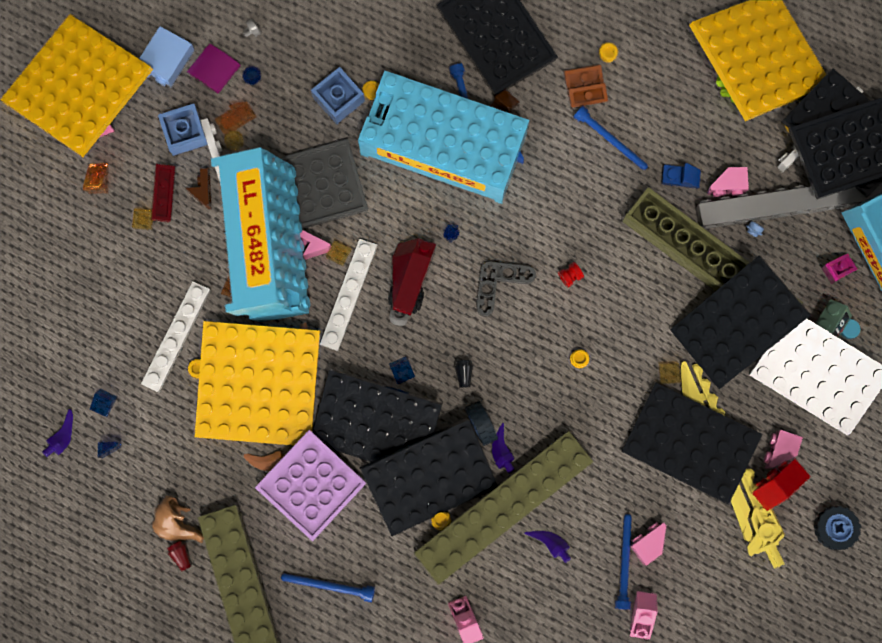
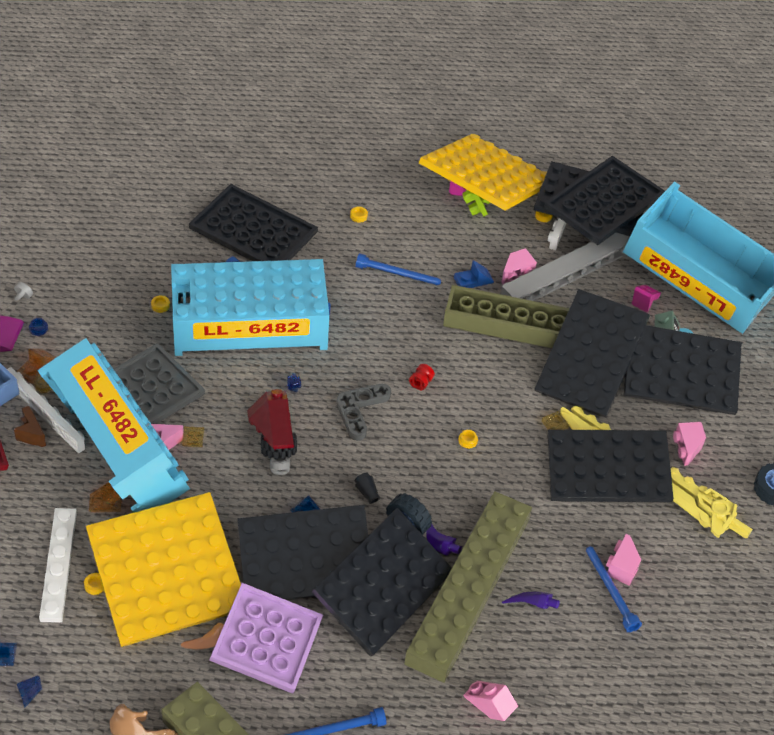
camera: 30 degrees left, 30 degrees down
(338, 95) = (131, 312): medium blue brick -> none
(348, 295) = (220, 466): white plate -> none
(441, 521) = (414, 621): yellow plate -> none
(585, 86) = (353, 241): dark orange slope -> none
(643, 615) = (657, 623): bright pink slope -> none
(754, 229) = (559, 292): light blue plate -> none
(780, 484) = (706, 460): red brick -> none

